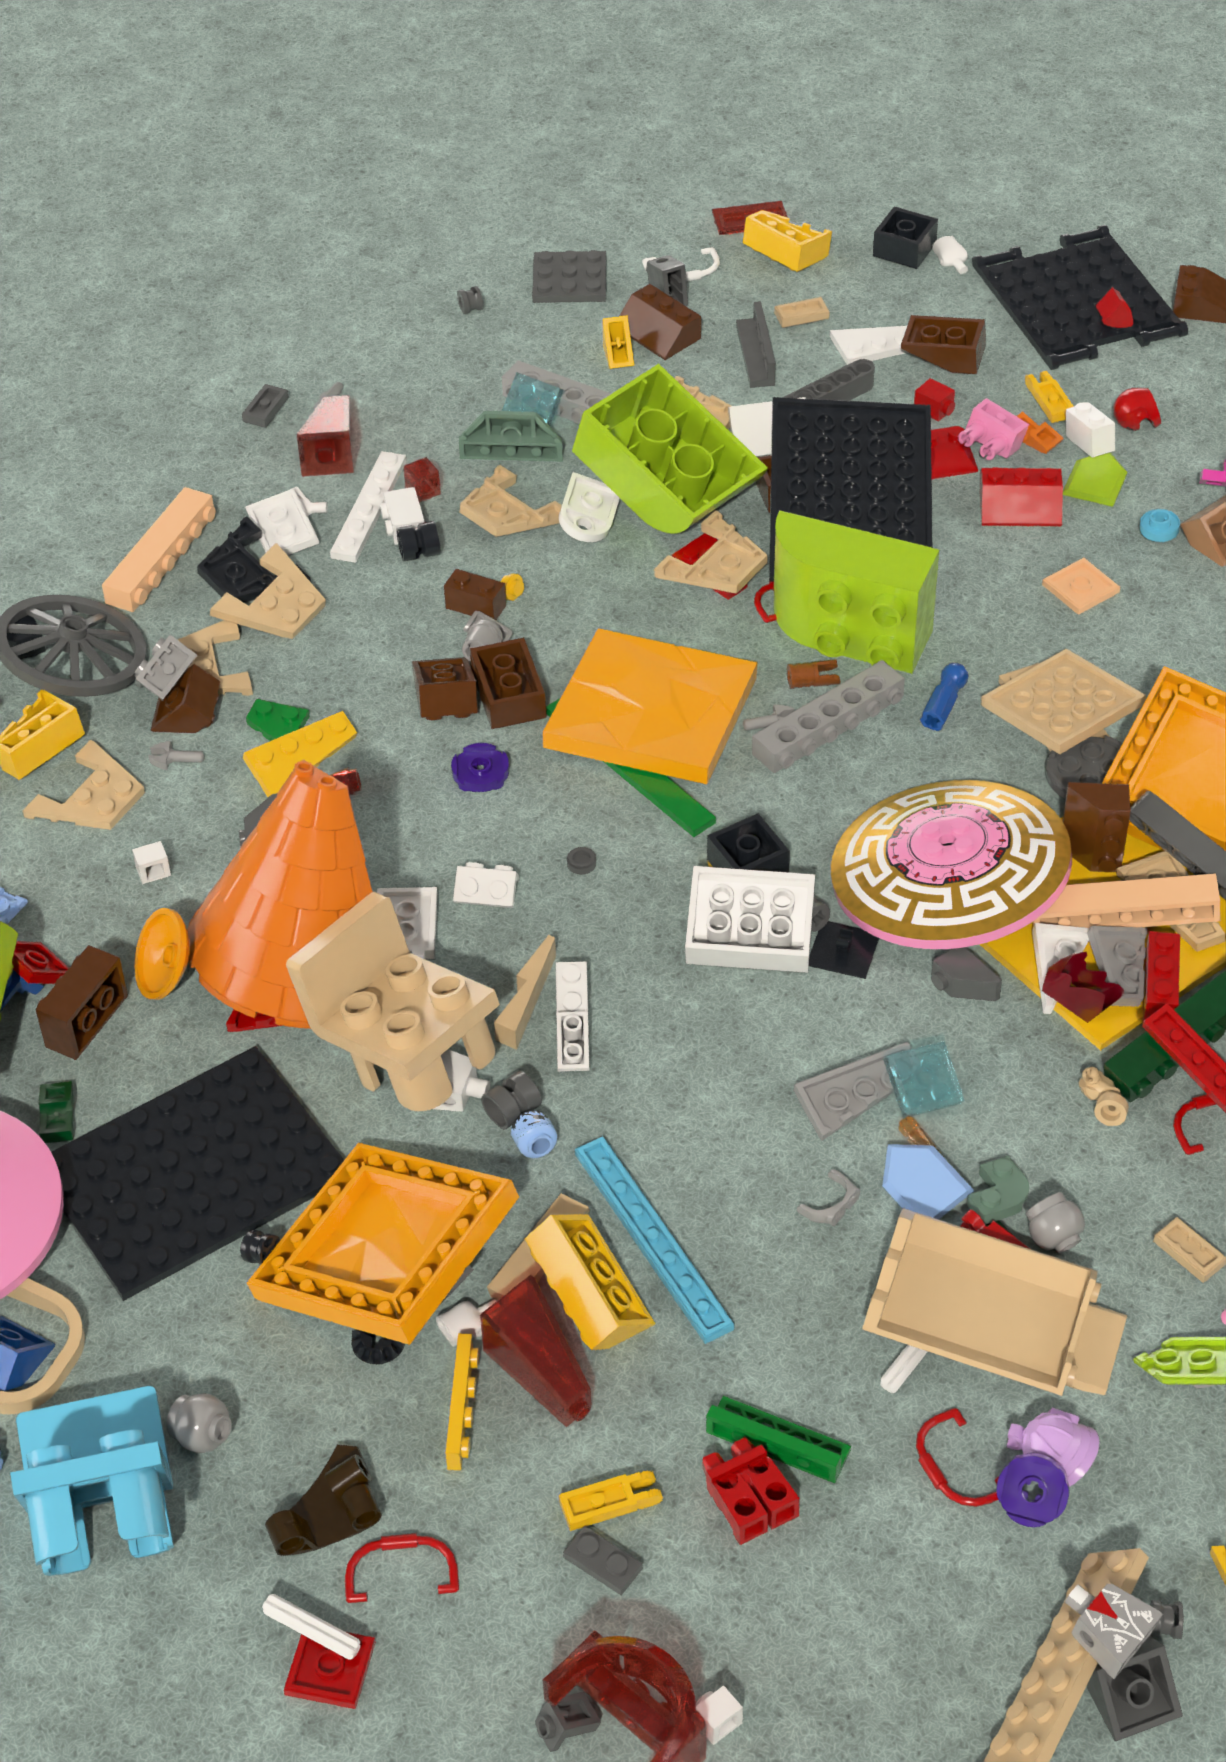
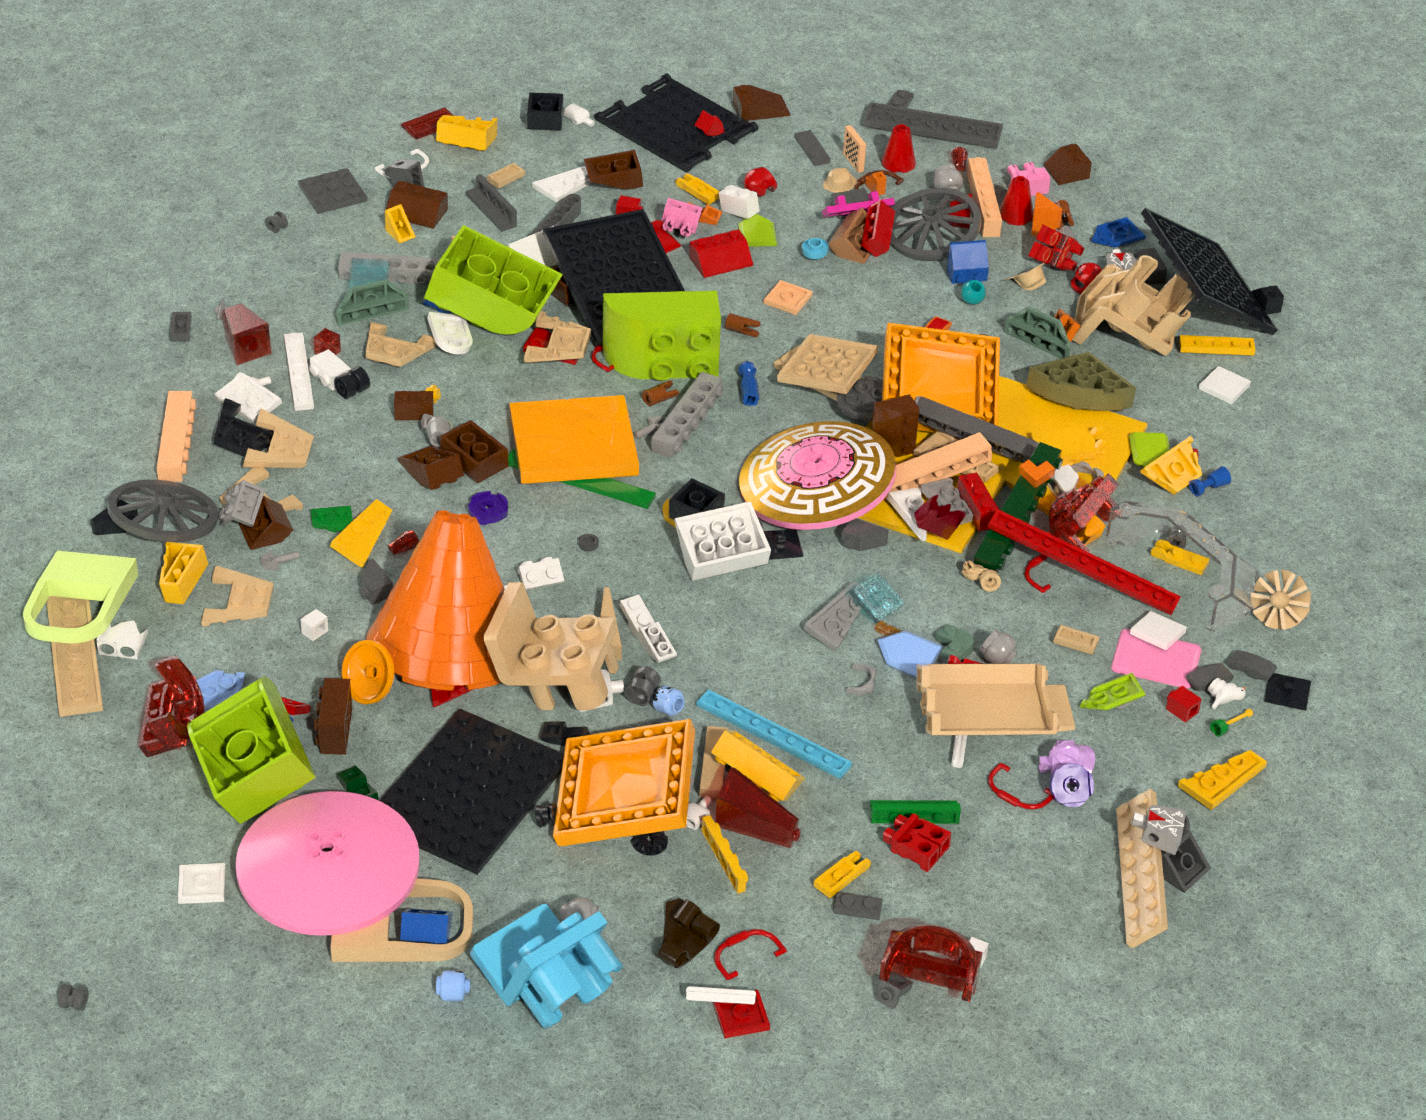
camera: 30 degrees left, 5 degrees down
(362, 1127) = (558, 732): none -> black slope
(987, 607) = (740, 324): none -> dark orange hinge

